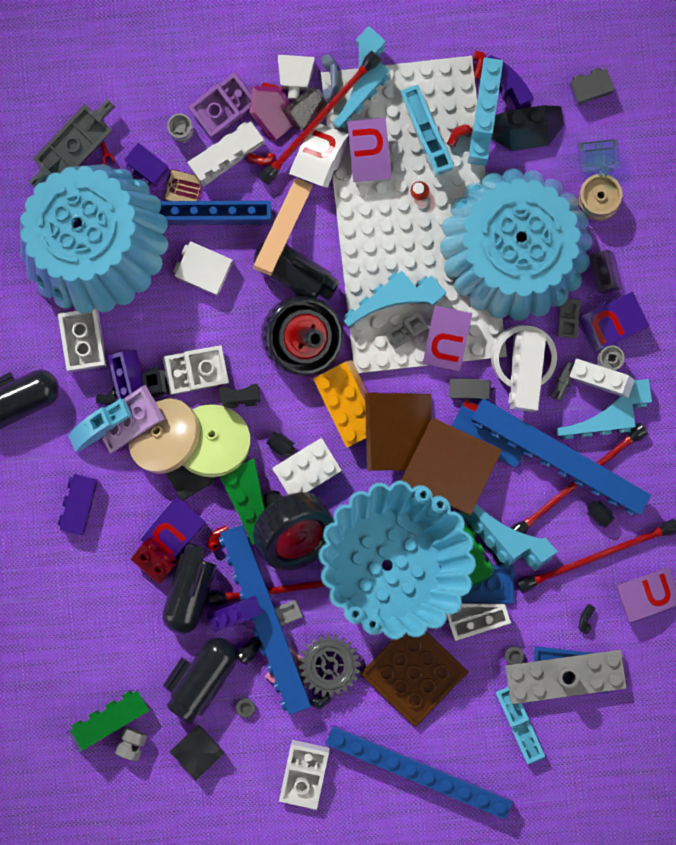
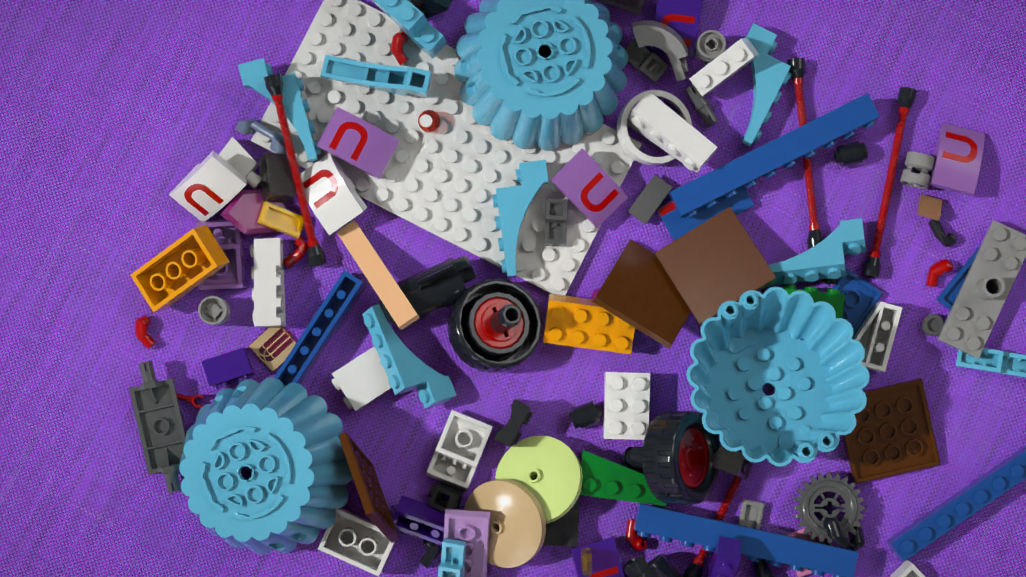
camera: 65 degrees left, 0 degrees up
(124, 320) = (368, 487): none -> reddish brown tile
(132, 85) = (141, 331): none -> red arm
(174, 512) = (586, 561): none -> tile
(194, 82) = (180, 268): none -> light orange brick
(228, 290) = (402, 367): none -> medium azure arch
(266, 64) = (209, 187): none -> white slope
(277, 132) = (281, 220): none -> yellow tile
(313, 571) = (731, 463): none -> clear smoke brick
(313, 679) = (835, 533): none -> black arm
(556, 632) = (936, 270): none -> red arm
(594, 323) = (664, 37): none -> light grey arch
(599, 597) = (929, 207): none -> medium nougat tile
(627, 568) = (918, 162): none -> light grey wheel

